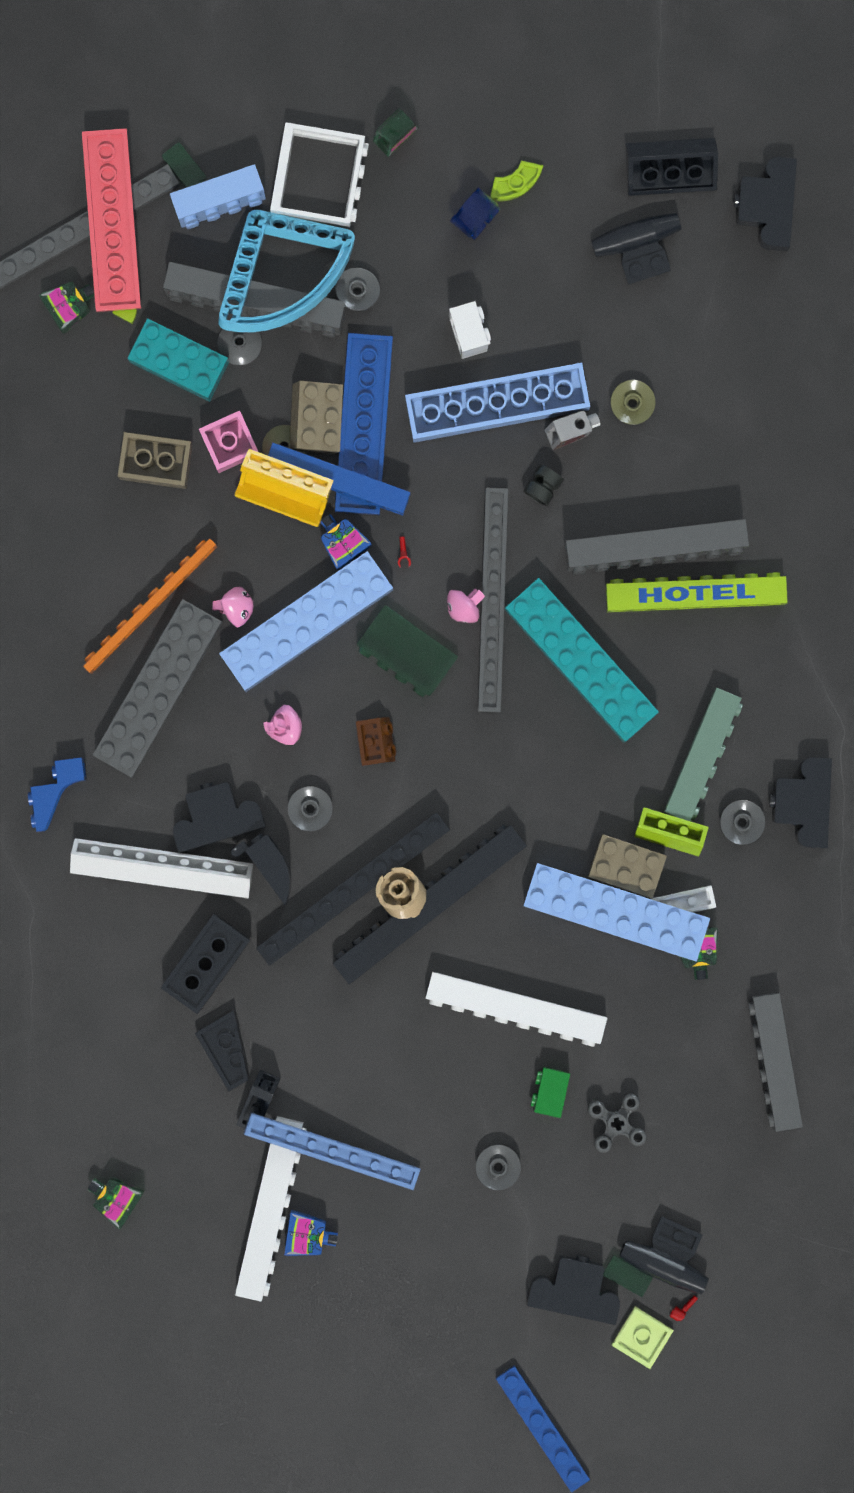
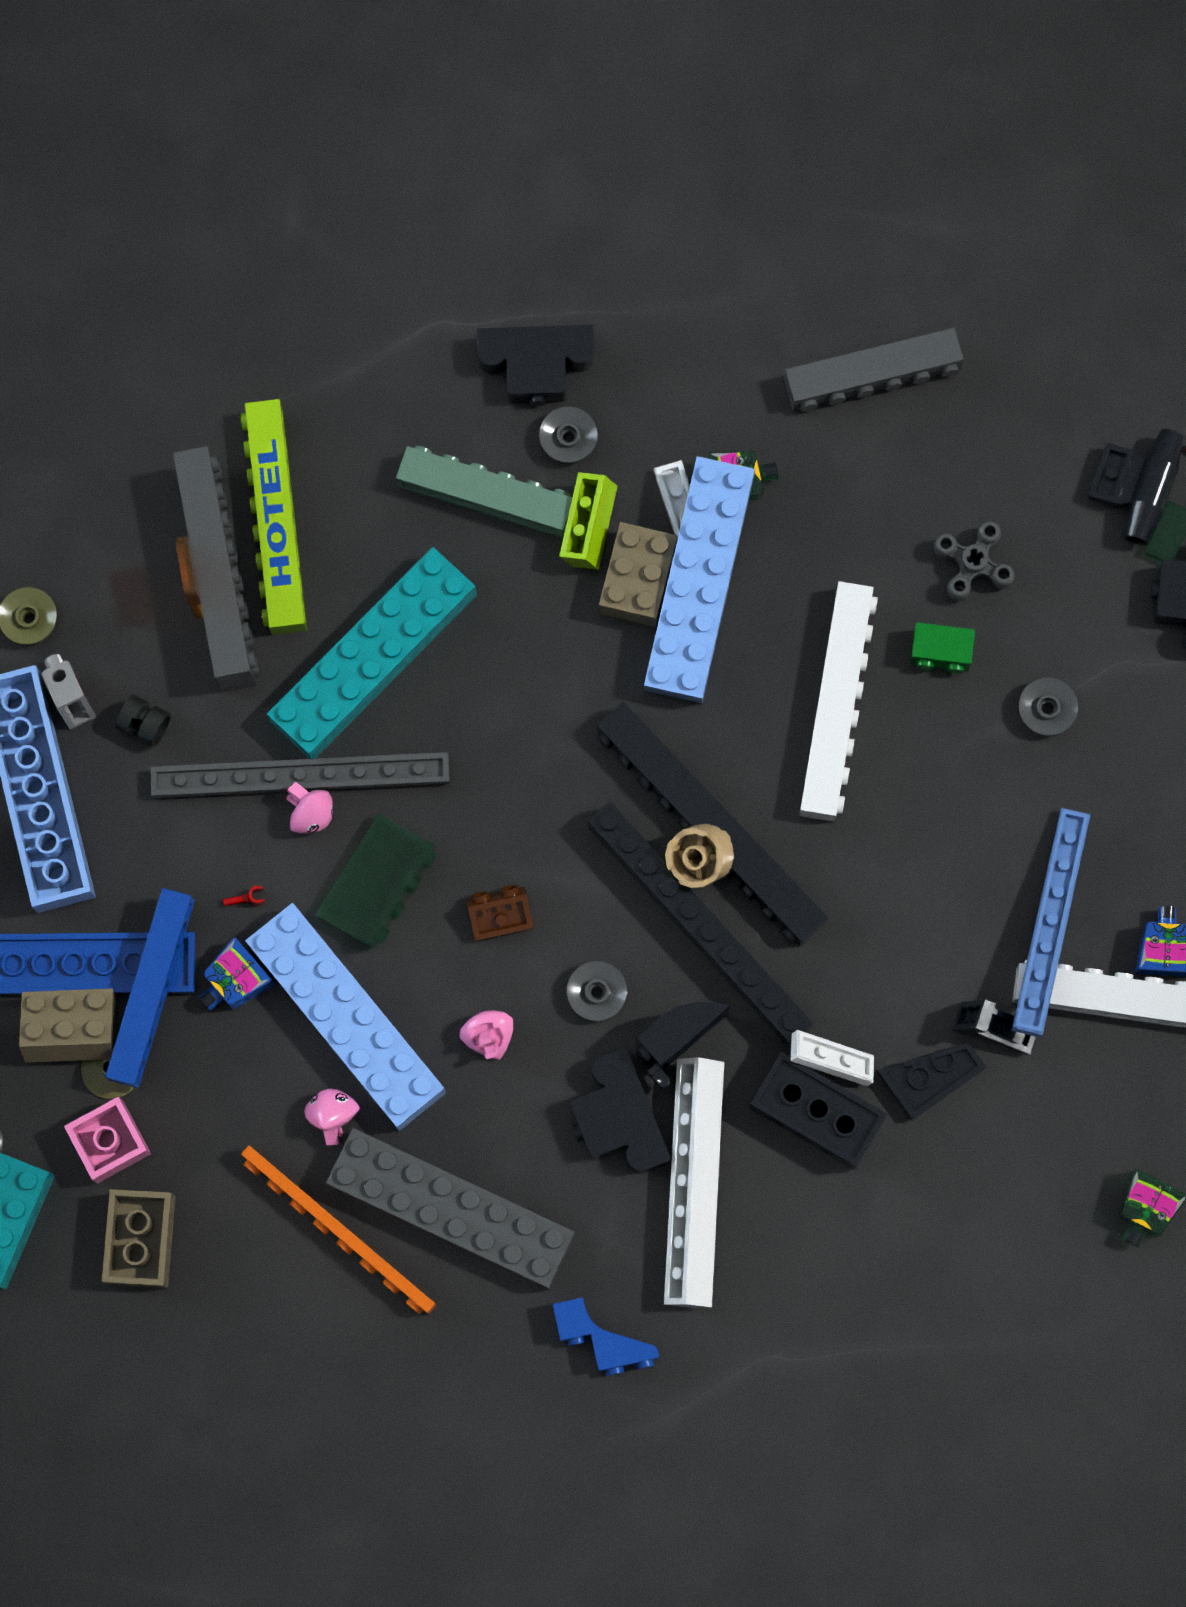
camera: 85 degrees left, 10 degrees down
(243, 978) = (832, 1058): none -> white tile
(283, 488) = (166, 1059): yellow panel -> none
(648, 525) = (188, 575): none -> clear orange tile

